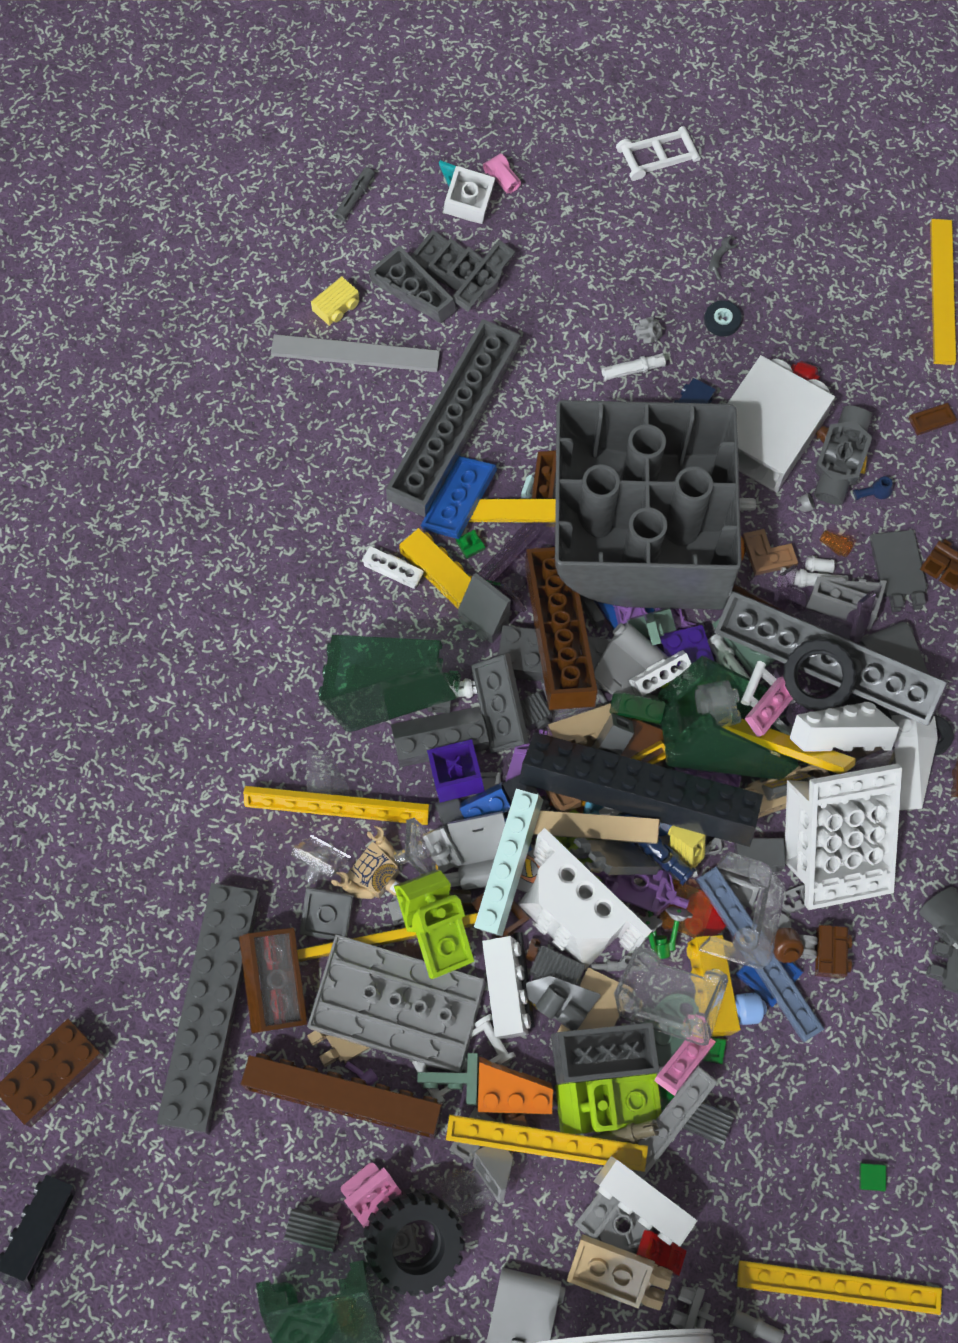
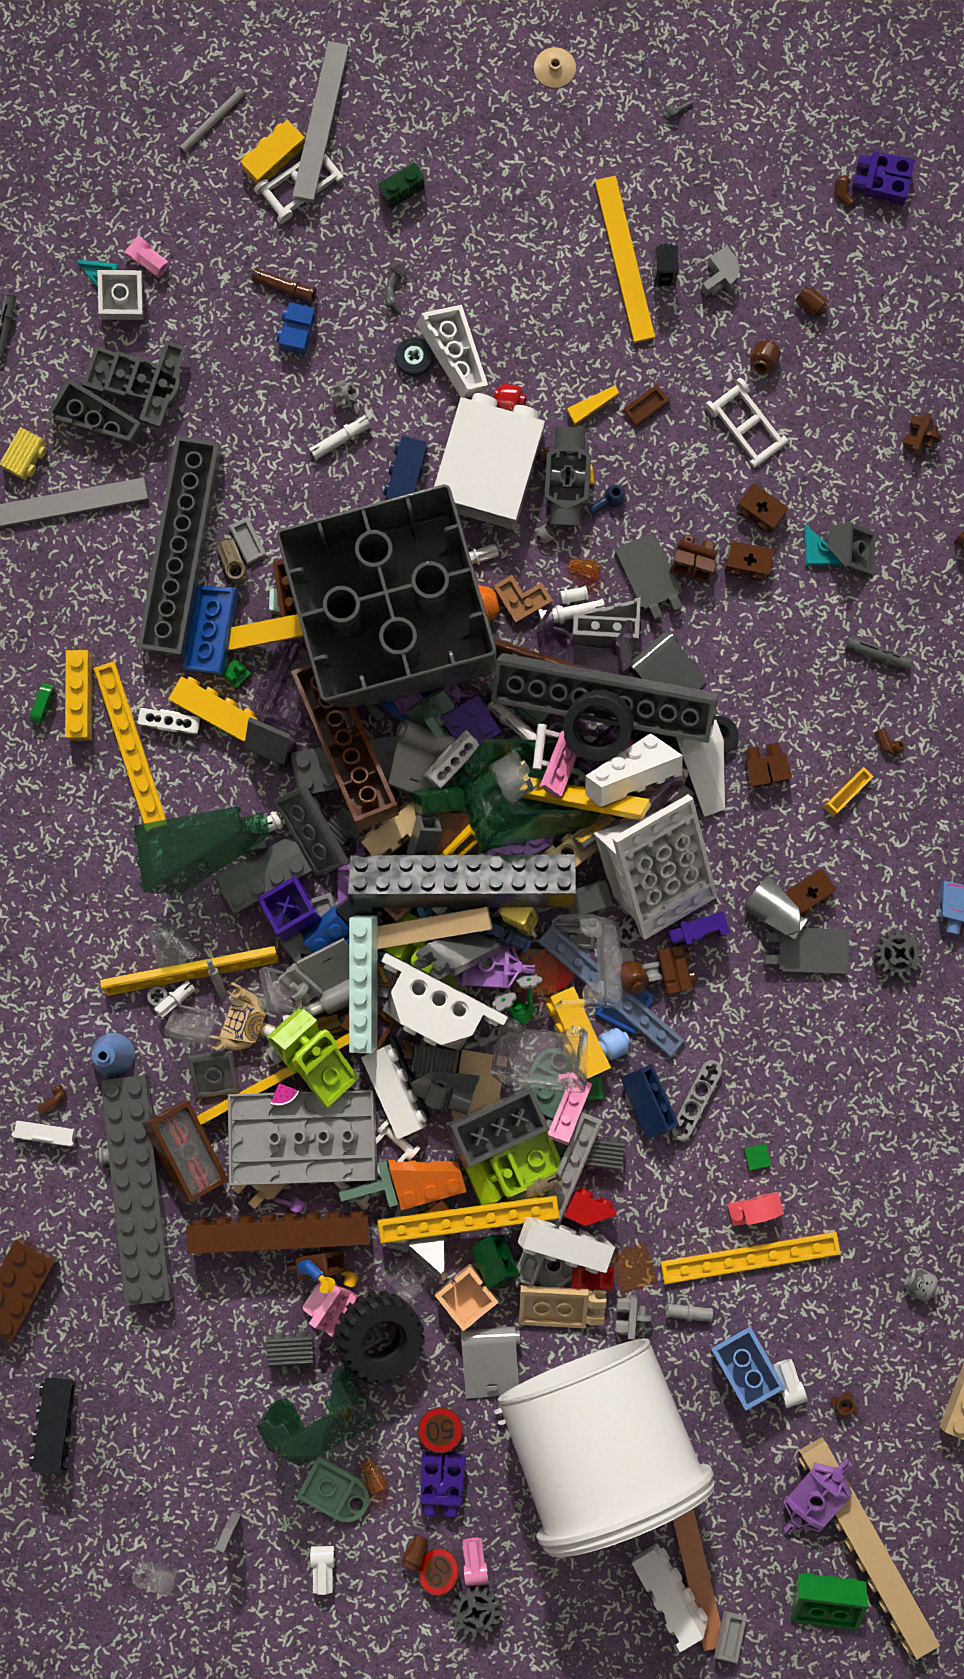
camera: 15 degrees left, 15 degrees up
(136, 923) = (44, 1134): none -> white piece
(157, 893) = (52, 1103): none -> reddish brown arm
(187, 964) = (103, 1156): none -> light grey bush
(230, 864) = (112, 1054): none -> medium blue cone
(277, 517) = (42, 704): none -> green beam
(292, 815) = (153, 991): none -> light grey bush
(312, 828) = (174, 999): none -> white axle
(314, 519) = (78, 695): none -> yellow brick
(348, 568) = (129, 743): none -> yellow tile
(359, 823) = (216, 979): none -> light grey hand
(376, 1145) = (320, 1266): none -> torso
(392, 953) = (284, 1095): none -> dark pink tile
(499, 444) = (232, 560): none -> dark tan piece
(518, 431) = (247, 540): none -> light grey tile
(518, 1230) = (466, 1297): none -> light nougat piece
(561, 1200) = (495, 1262): none -> dark green brick
(595, 85) = (212, 120): none -> light grey bar
(621, 266) = (297, 328): none -> blue brick
(627, 233) = (292, 288): none -> reddish brown pin
(643, 121) = (273, 152): none -> yellow brick
(676, 1173) = (587, 1209): none -> red slope
(692, 109) = (320, 122): none -> light grey tile
(708, 1257) = (633, 1267): none -> clear orange piece
(752, 176) = (402, 185): none -> dark green brick
(763, 316) = (454, 347): none -> white wedge
(771, 1079) = (649, 1101): none -> dark blue brick
(823, 1097) = (699, 1101): none -> light grey beam
(858, 1232) = (756, 1209): none -> coral brick
(869, 915) = (698, 928): none -> dark purple hips
(882, 403) = (587, 407): none -> yellow piece
(917, 128) = (555, 76): none -> tan dish

